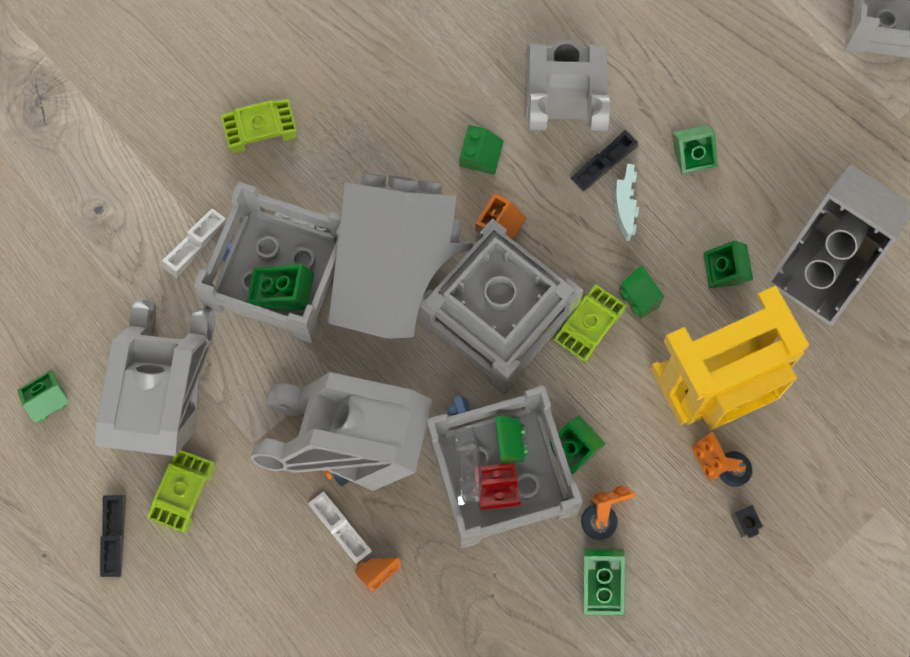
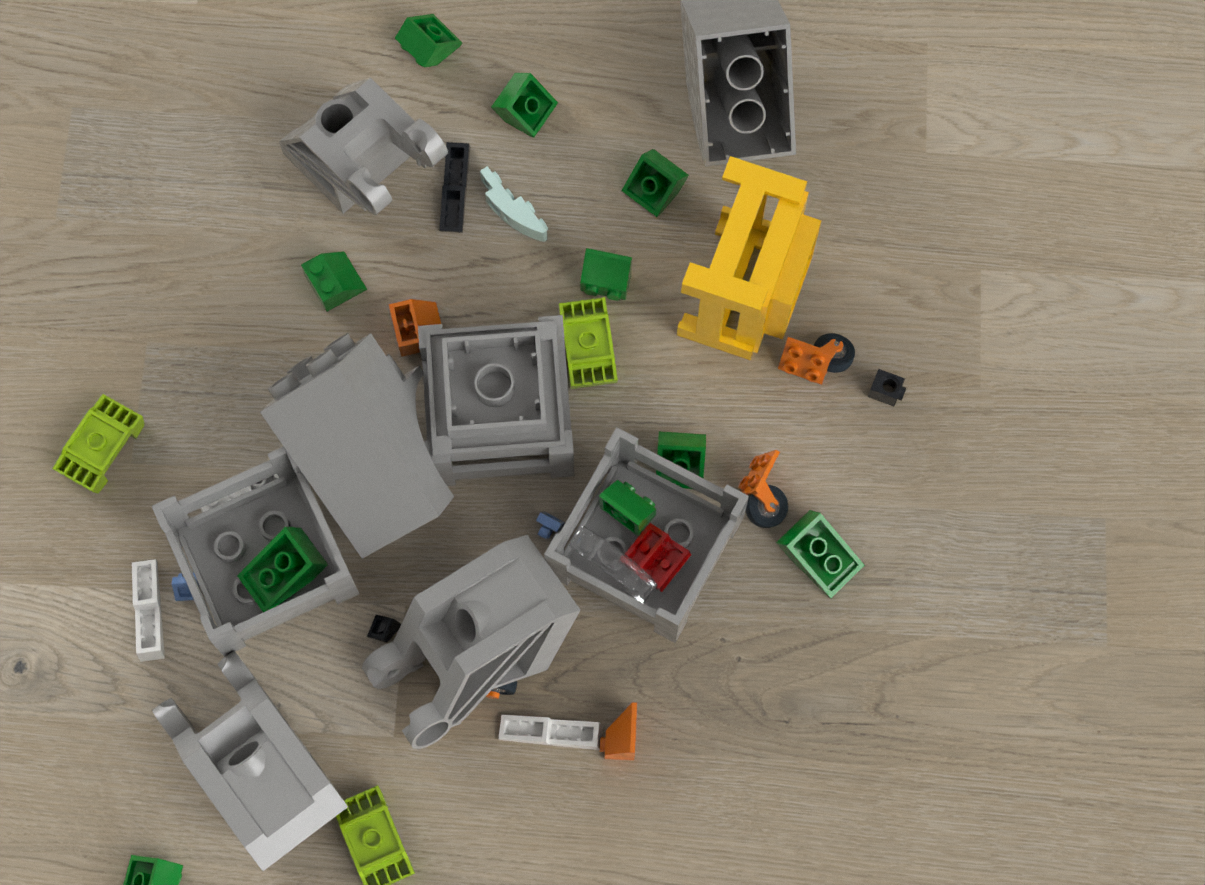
camera: 45 degrees left, 0 degrees up
(307, 376) = (383, 628): none -> black slope
(675, 59) = (427, 39): none -> green slope

